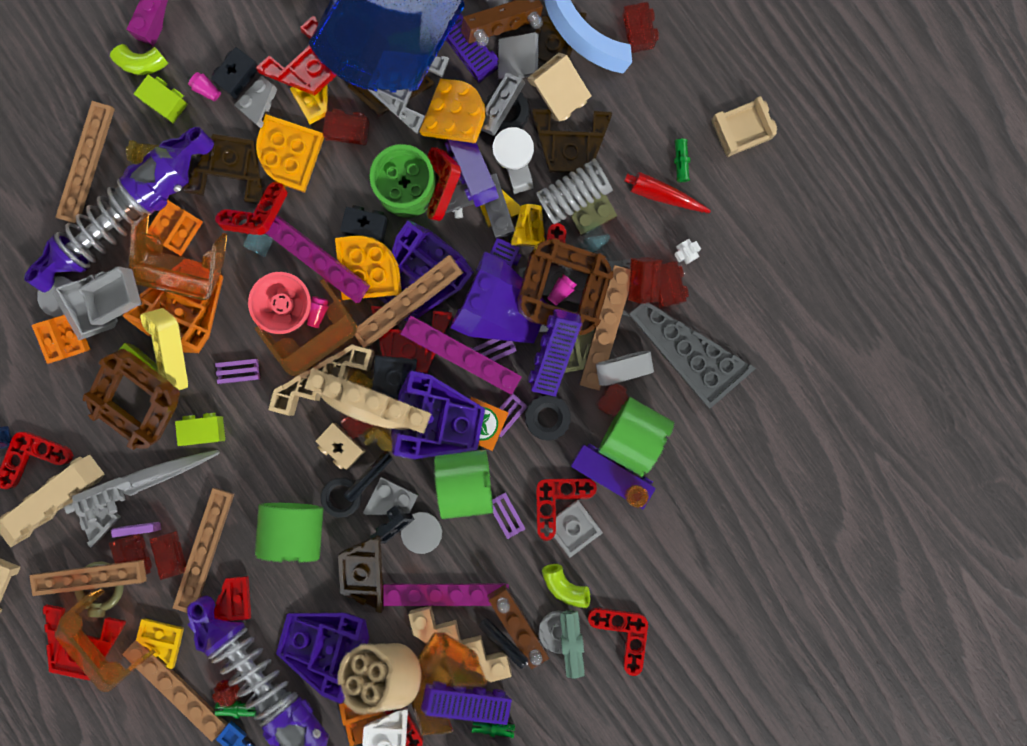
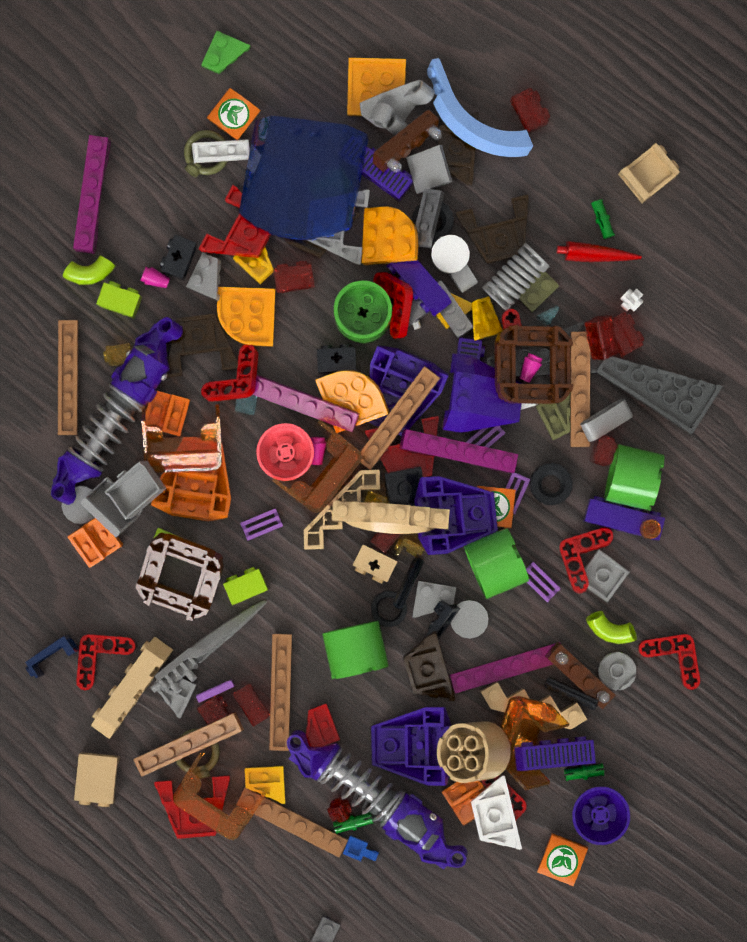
camera: 20 degrees left, 0 degrees up
(167, 346) = (198, 516): light yellow beam -> none
(555, 352) = (541, 424): dark purple brick -> none
(560, 86) = (475, 186): tan panel -> none
(572, 644) = (631, 676): sand green piece -> none

